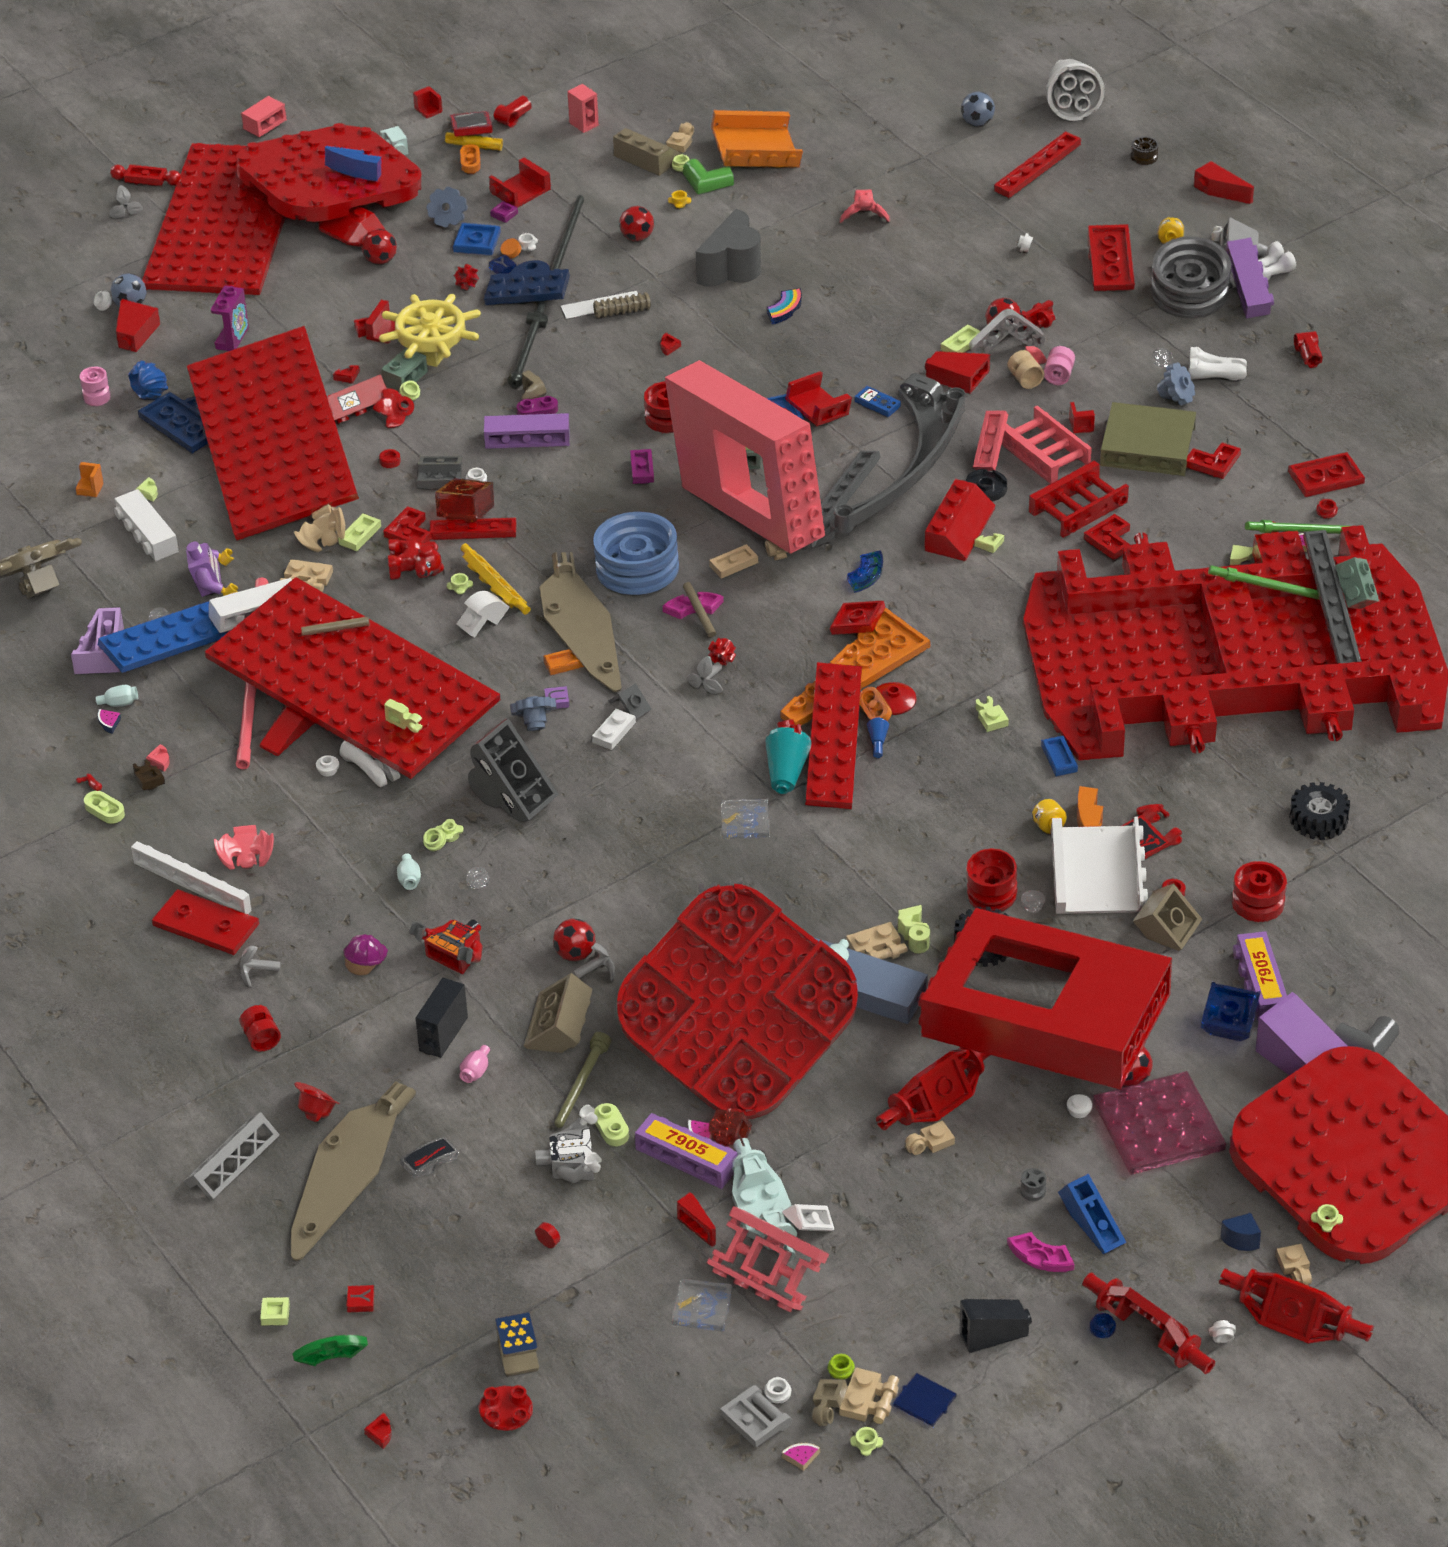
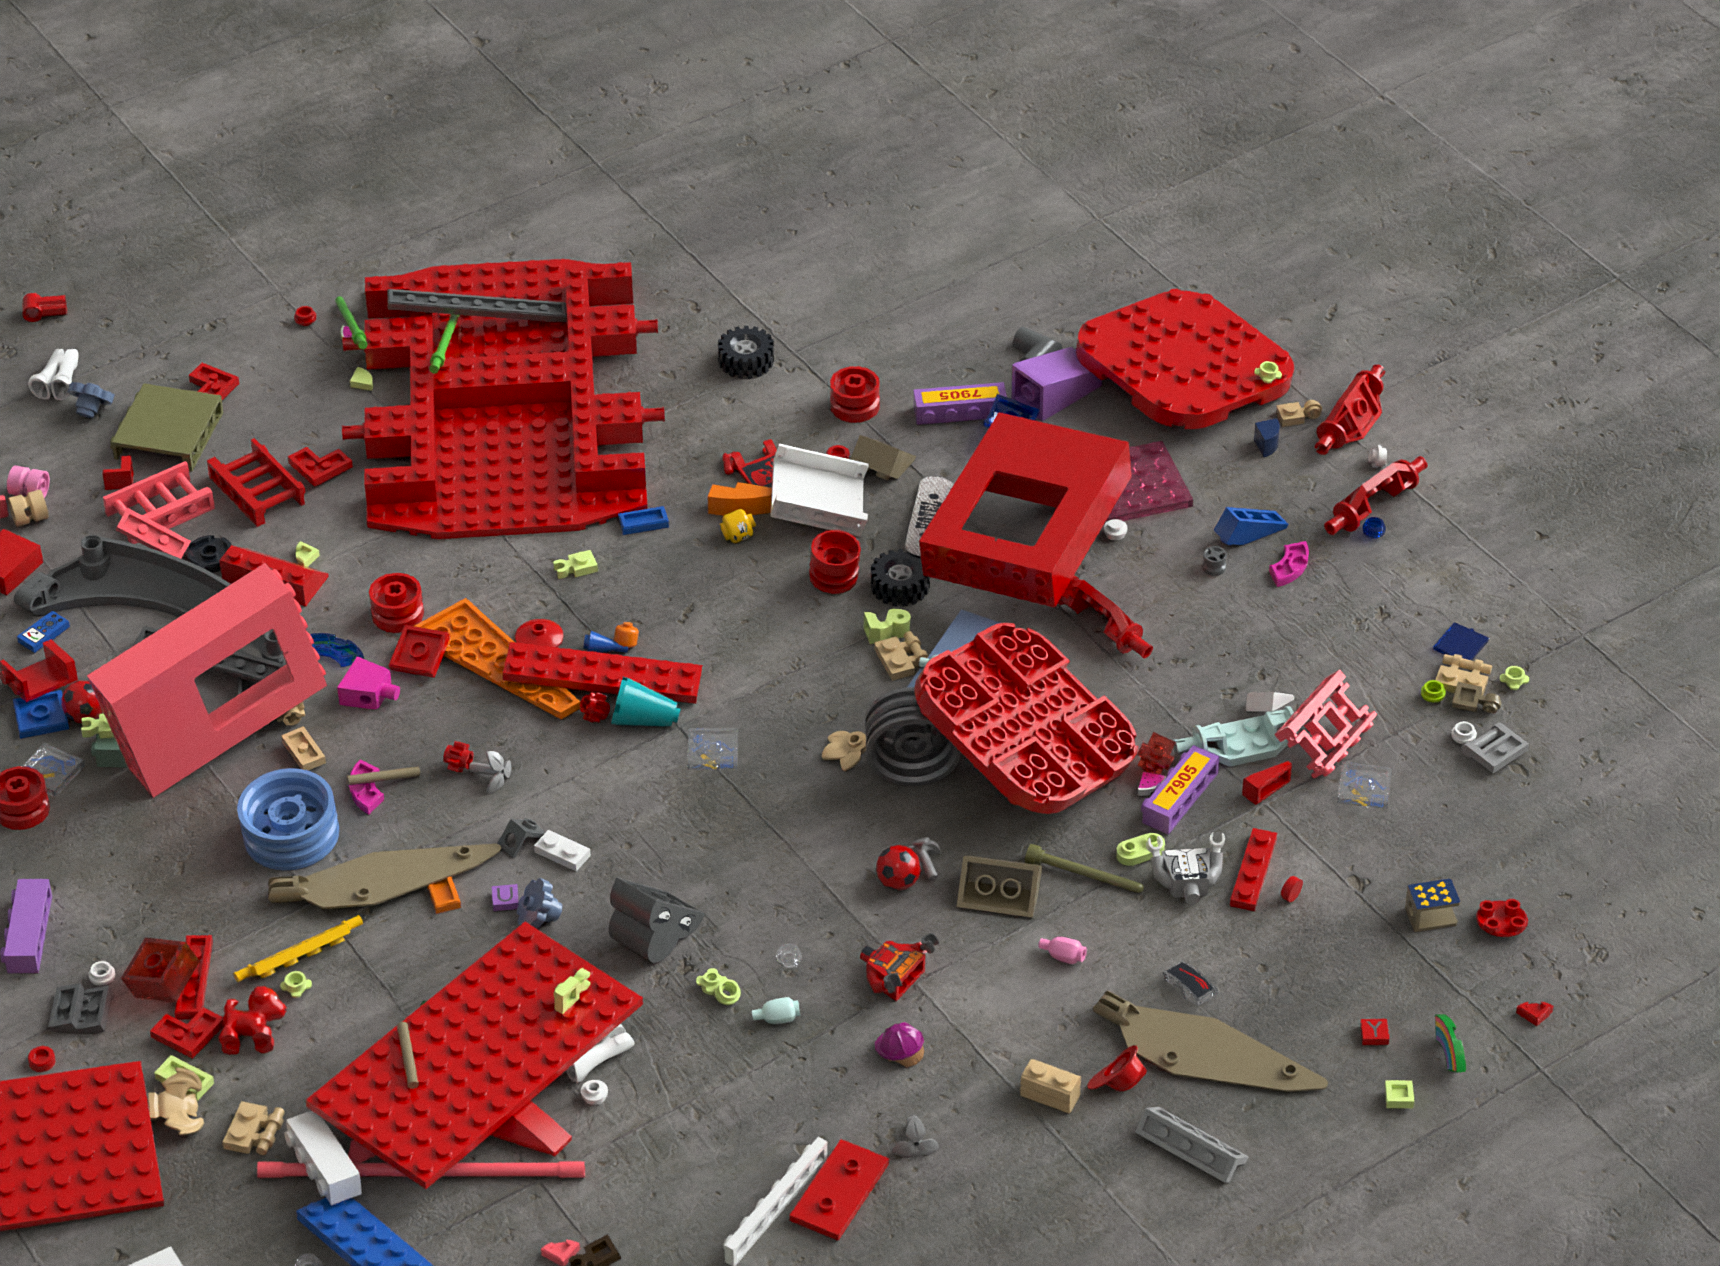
camera: 90 degrees left, 0 degrees up
(206, 570) = (237, 1214): medium lavender torso -> none
(245, 847) = (729, 1148): coral animal -> none
(260, 1028) = (1015, 1122): red wheel -> none
(302, 1052) = (1050, 1086): none -> tan brick
(441, 1017) = (1012, 966): black brick -> none
(481, 607) = (361, 953): white brick -> none
(582, 1211) = (1253, 869): none -> red plate
(642, 466) = (117, 825): magenta plate -> none
(801, 1454) = (1533, 720): tile -> none
(814, 589) = (366, 685): none -> dark pink torso
(874, 704) = (559, 638): orange plate -> none
(888, 749) = (626, 635): none -> orange piece
(918, 596) = (396, 602): none -> red wheel
(934, 1136) = (1156, 625): tan plate -> none
(992, 1322) = (1385, 589): black slope -> none
(1162, 357) = (30, 409): clear plate -> none
(1326, 474) = (247, 314): red tile -> none
(1357, 583) = (452, 281): sand green brick -> none

